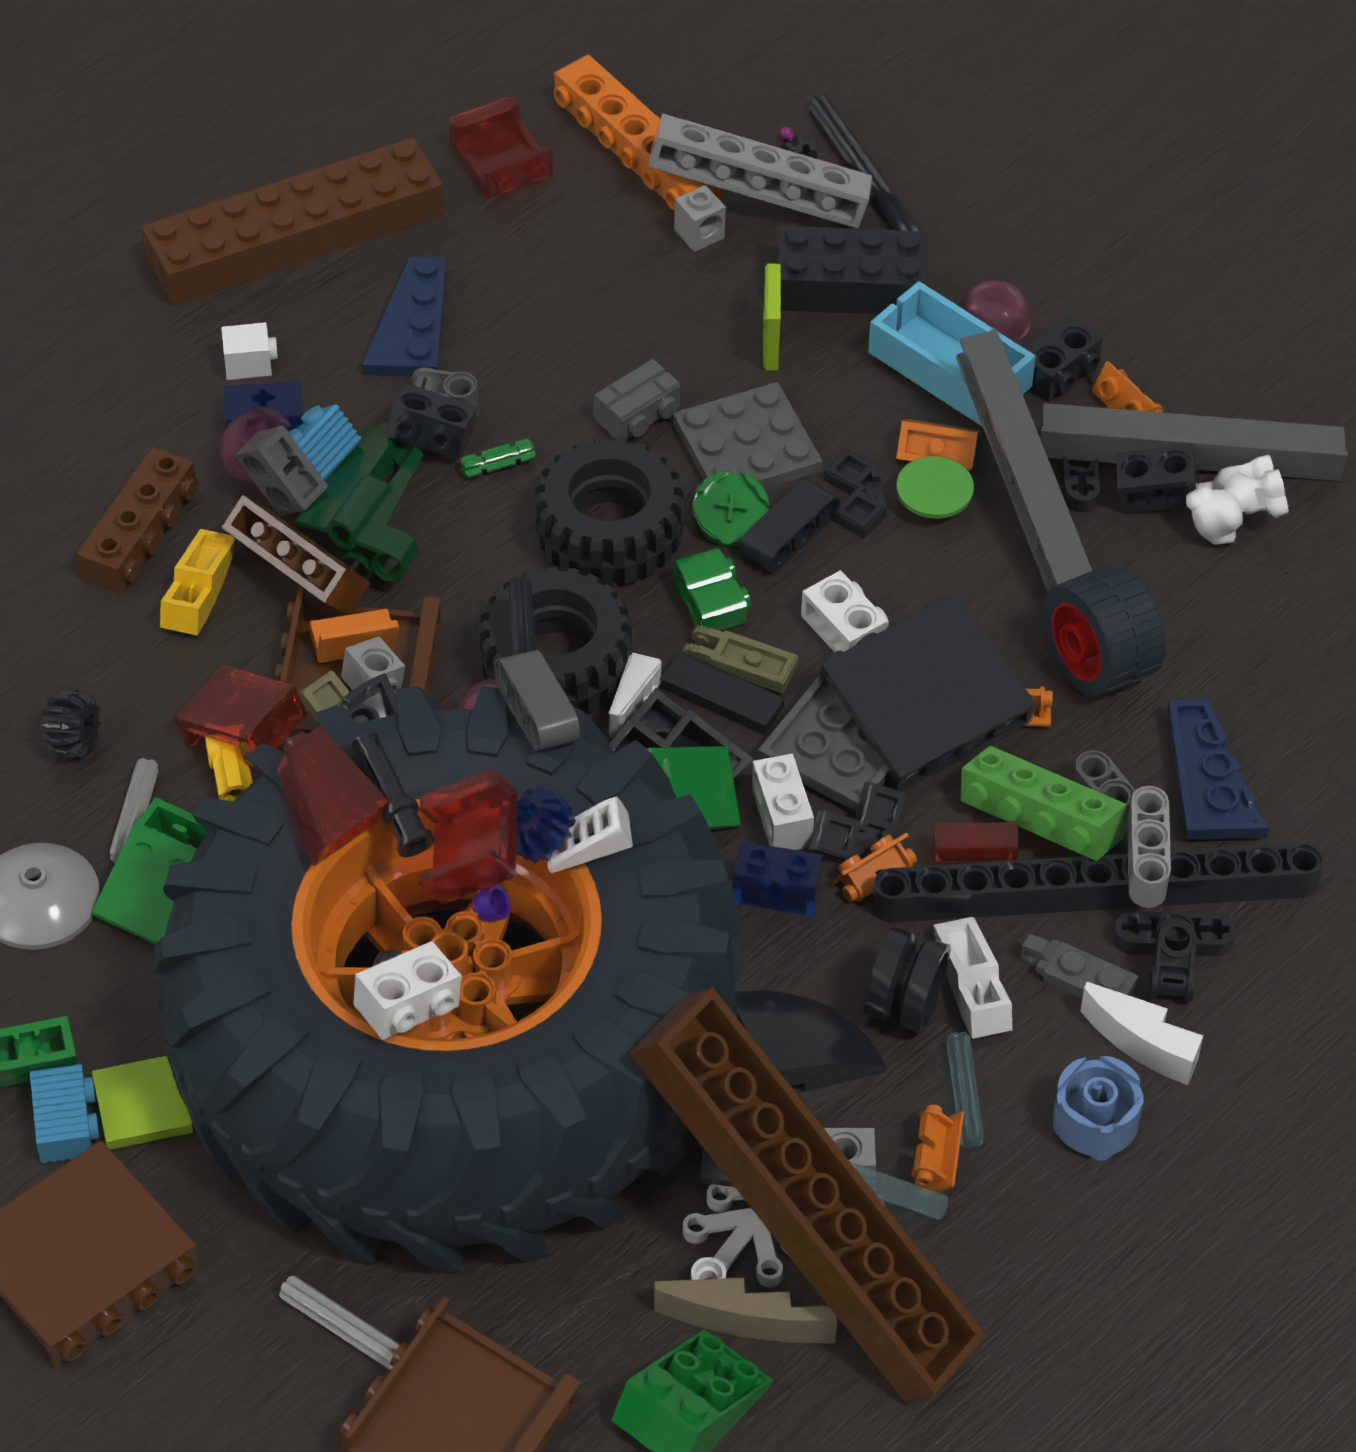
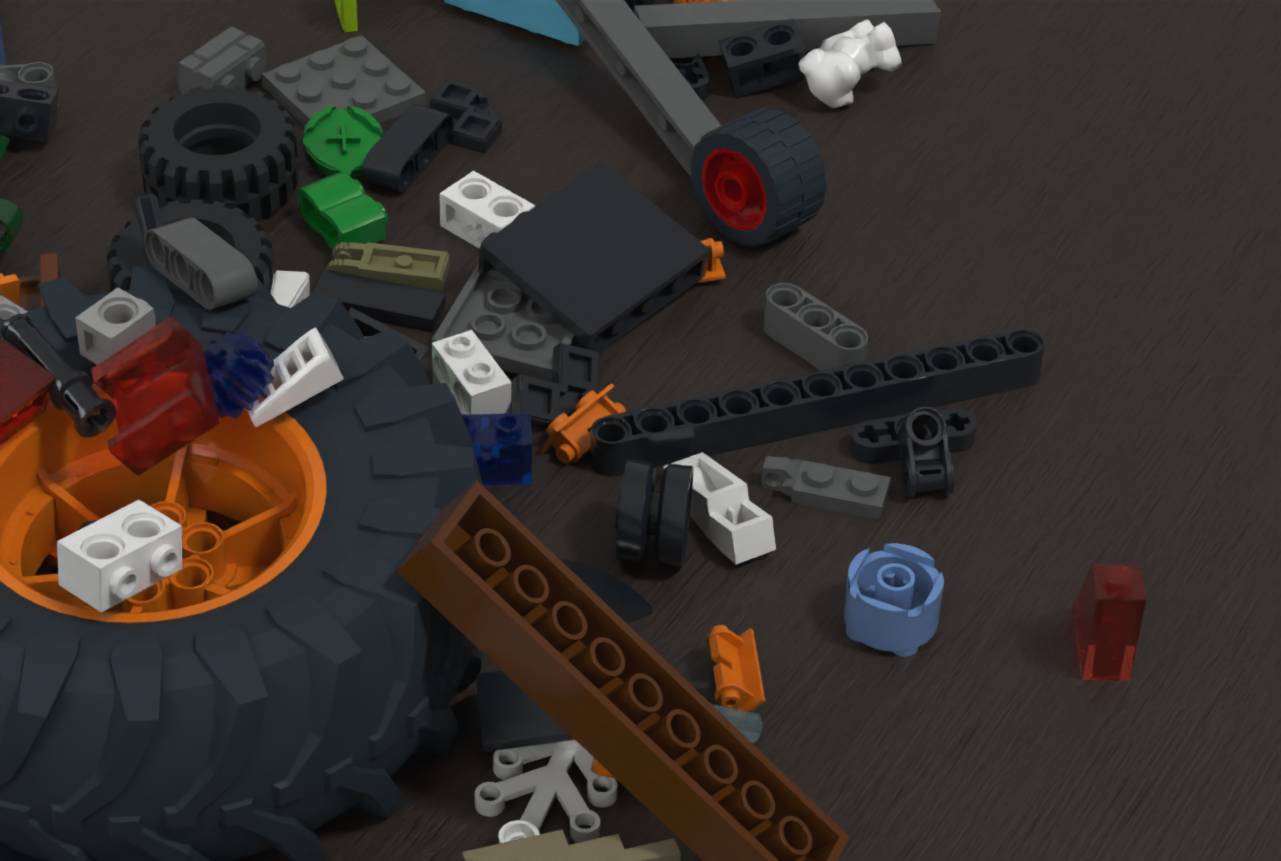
camera: 15 degrees left, 10 degrees down
(434, 758) = (112, 324): none -> light grey brick
(491, 904) = (196, 461): dark purple hinge -> none
(497, 458) = (88, 136): green axle -> none
(932, 439) = (537, 62): orange panel -> none
(935, 487) = (546, 95): bright green piece -> none
(965, 1088) = (743, 609): clear light blue axle -> none
(975, 842) = (682, 381): clear red brick -> none
(1043, 802) = (745, 335): bright green brick -> none
(1141, 1032) = (912, 520): white slope -> none
(1148, 846) = (868, 350): light grey beam -> none
(1208, 777) = (900, 297): dark blue wing -> none
(1282, 1174) = (1109, 620): none -> clear red slope

